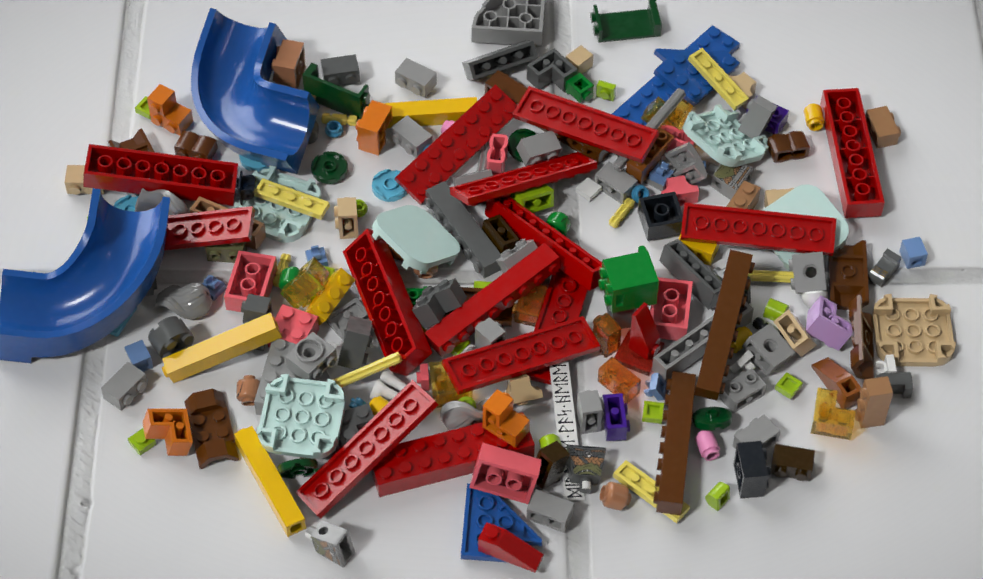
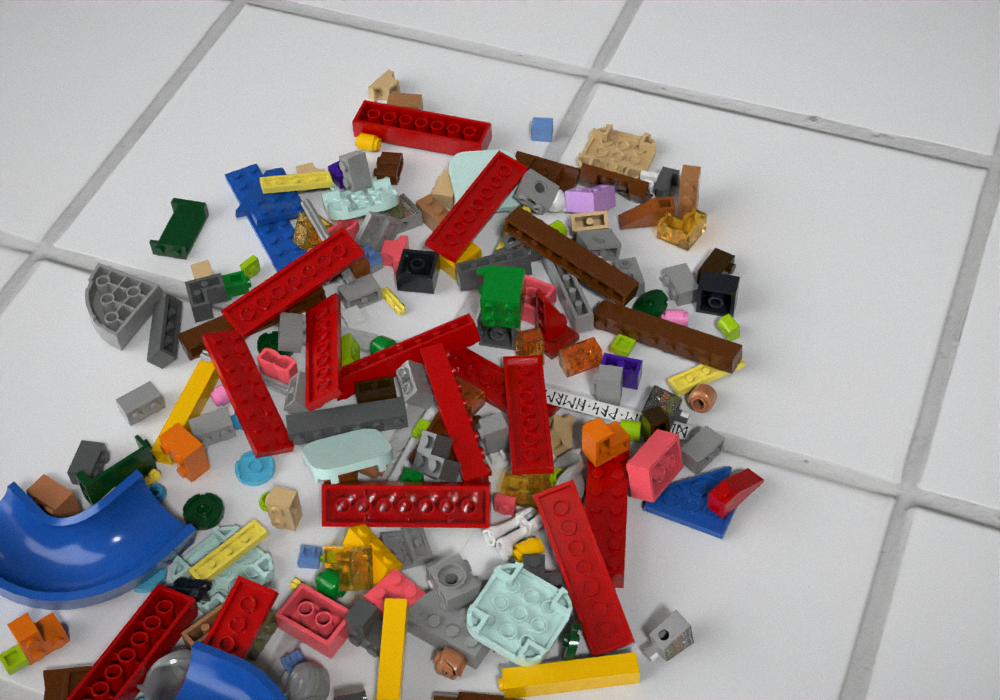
camera: 65 degrees left, 5 degrees down
(195, 145) = (101, 626): reddish brown brick -> none
(356, 340) = (440, 540): dark grey brick -> none
(368, 370) = (482, 542): light yellow axle -> none
(643, 191) = (382, 279): dark azure plate -> none
(656, 387) = (598, 333): medium blue tile -> none
(788, 385) = (636, 247): lime plate -> none
(885, 268) = (546, 149): dark grey leg -> none
(900, 100) = (383, 86): none -> tan brick

